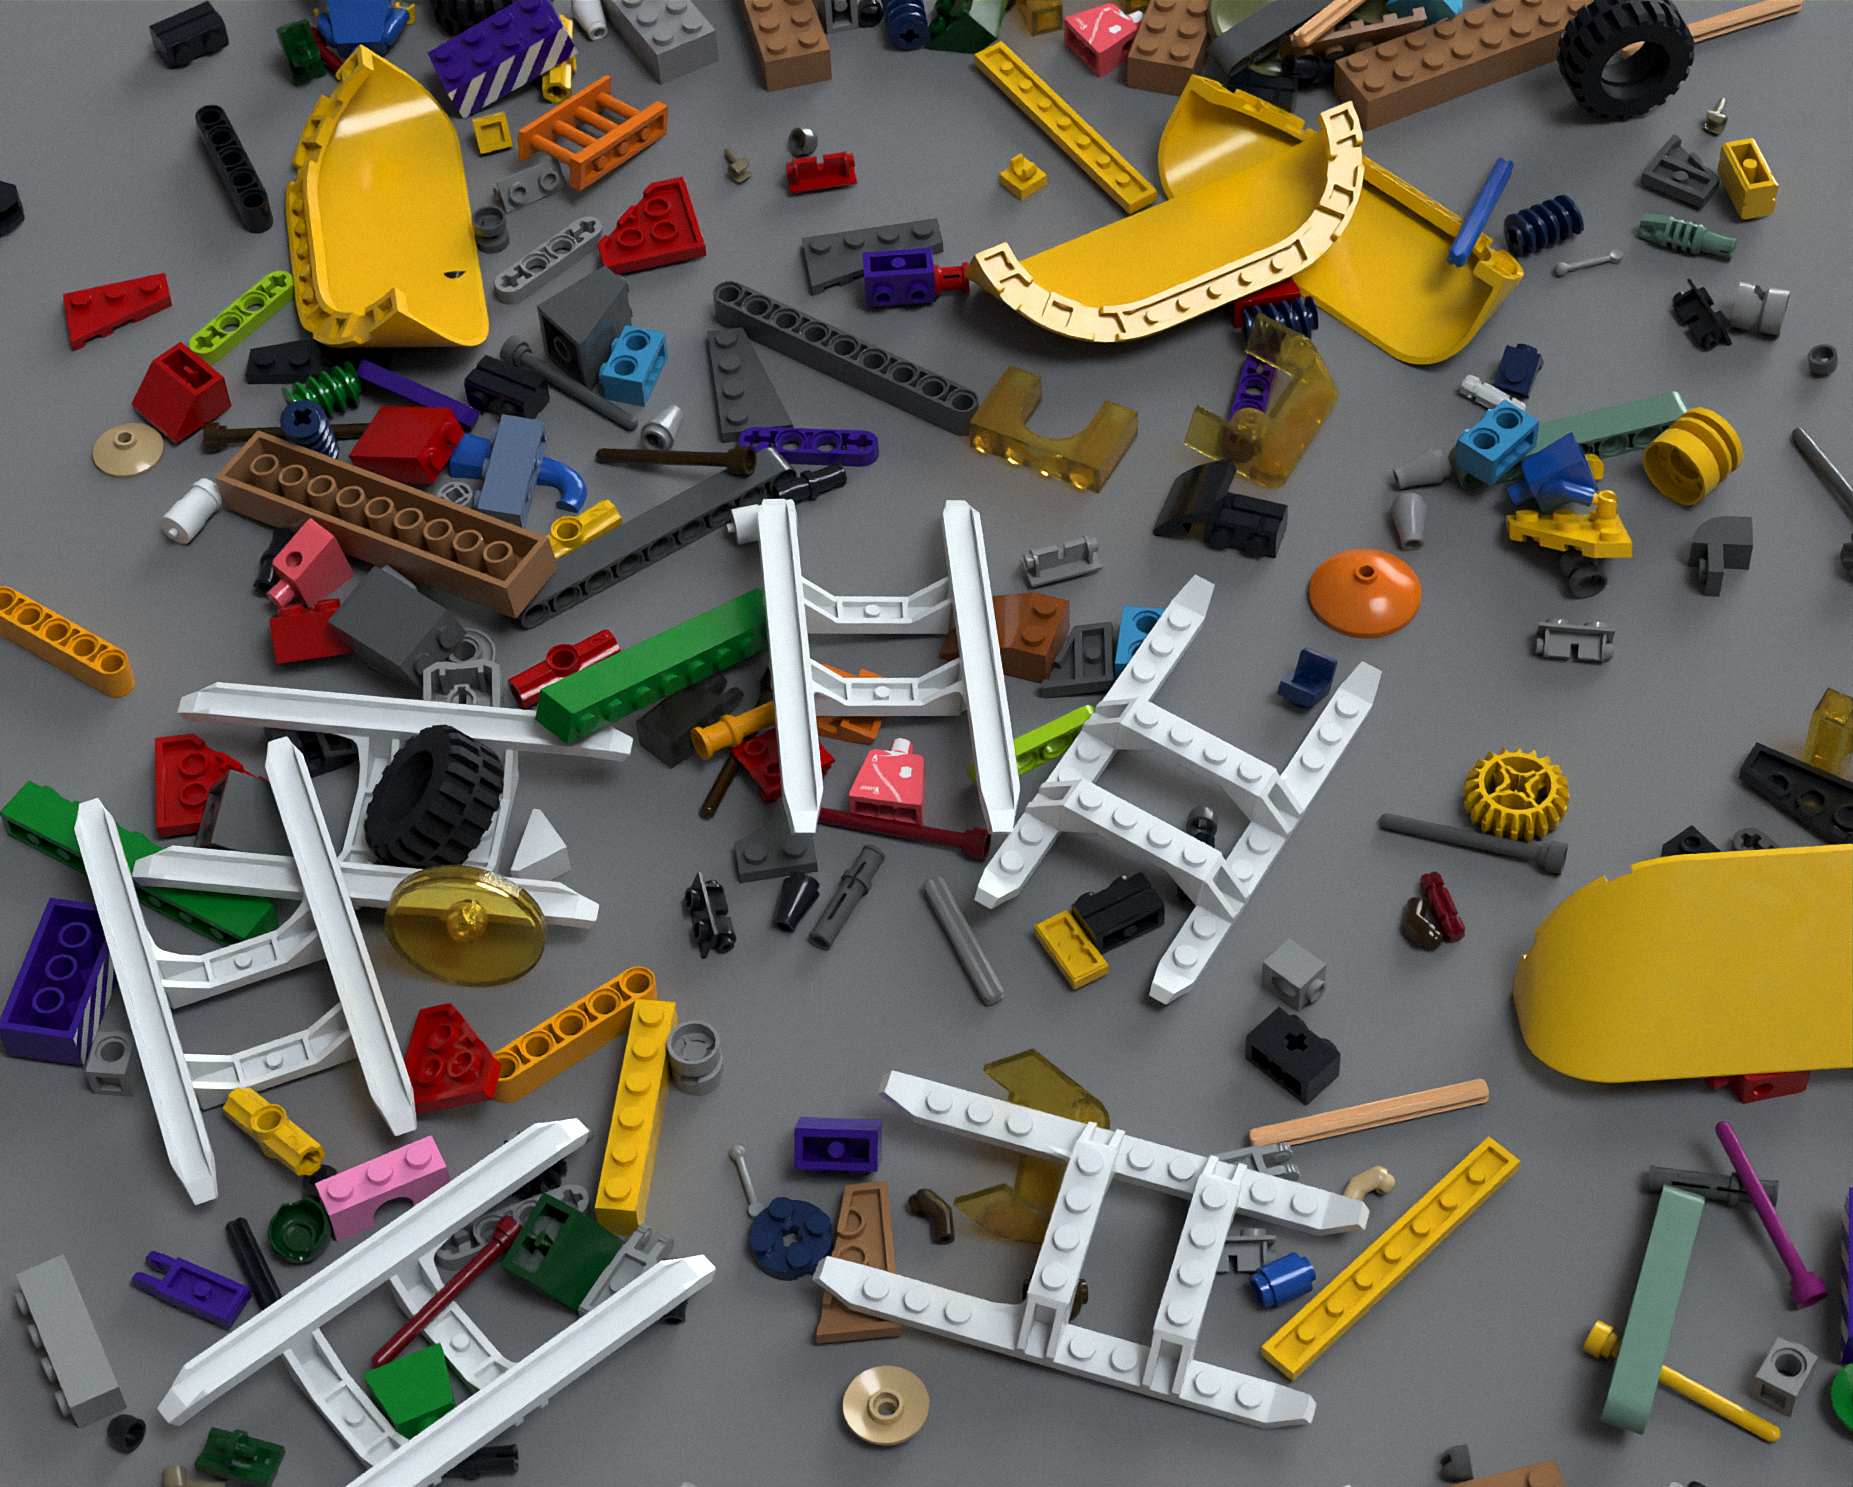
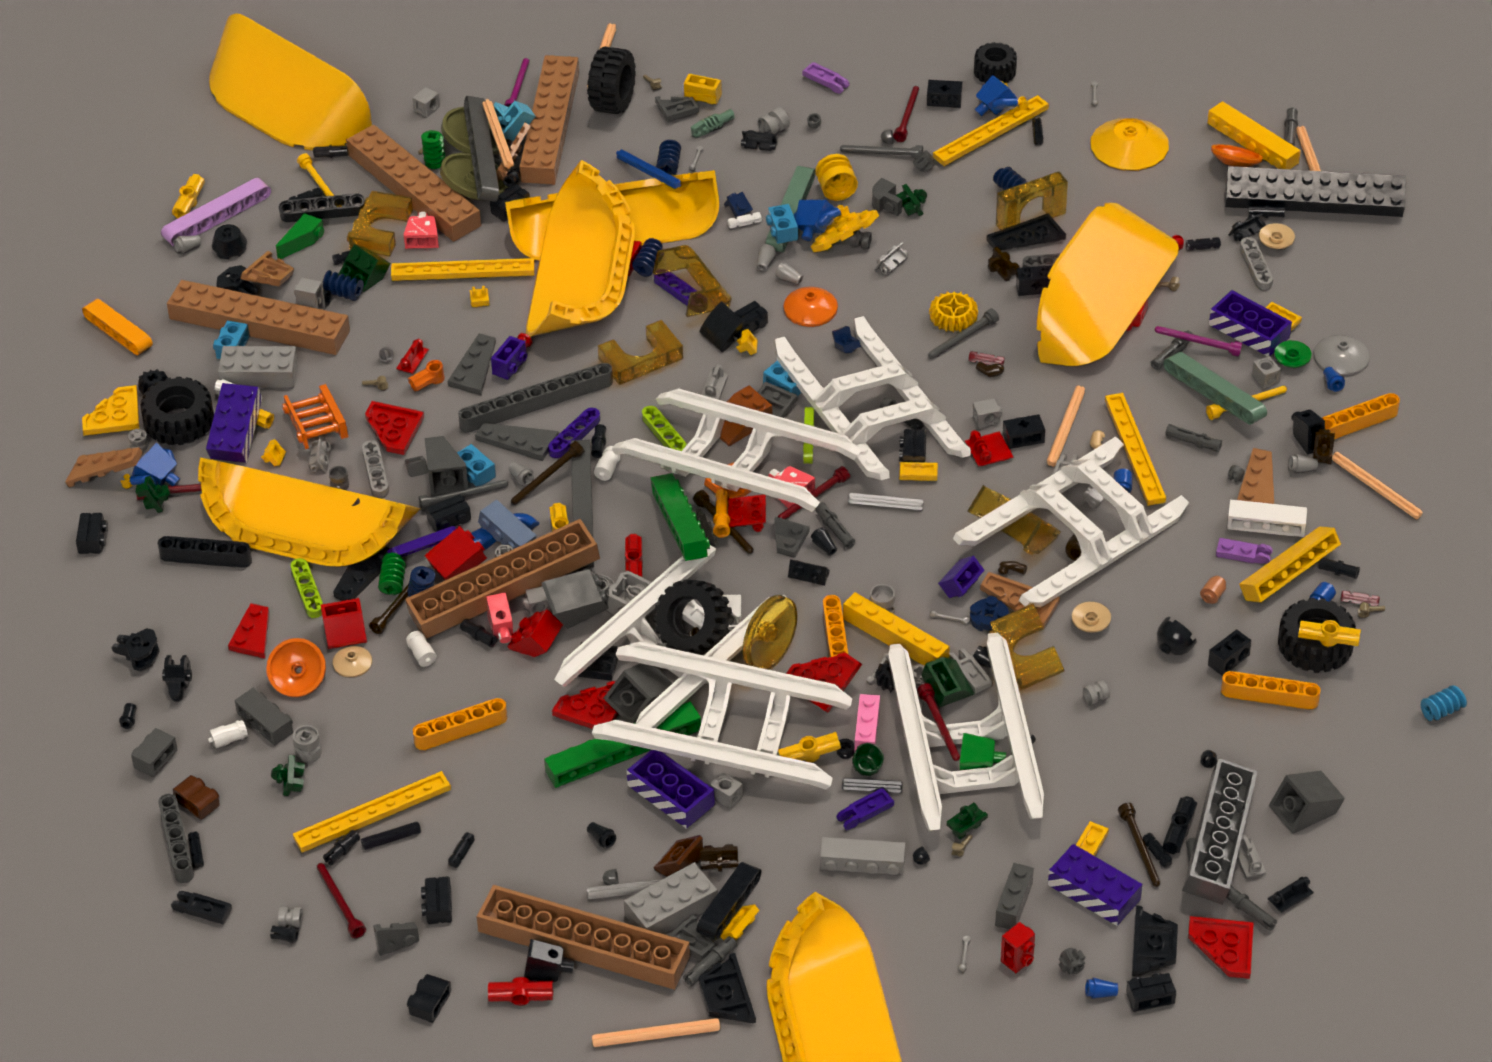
camera: 60 degrees left, 5 degrees down
(47, 388) = (290, 656): none -> orange dish
(744, 1289) = (1032, 668): none -> clear yellow arch
(797, 210) = (431, 374): none -> orange piece
(905, 557) = (660, 433): none -> lime beam
(1194, 553) = (747, 342): none -> yellow tile
(1212, 1025) = (988, 448): none -> red hinge
(1507, 1383) = (1201, 440): none -> dark grey pin
(1700, 799) = (1001, 264): none -> dark brown hips
(1752, 592) = (913, 198): none -> dark green hips

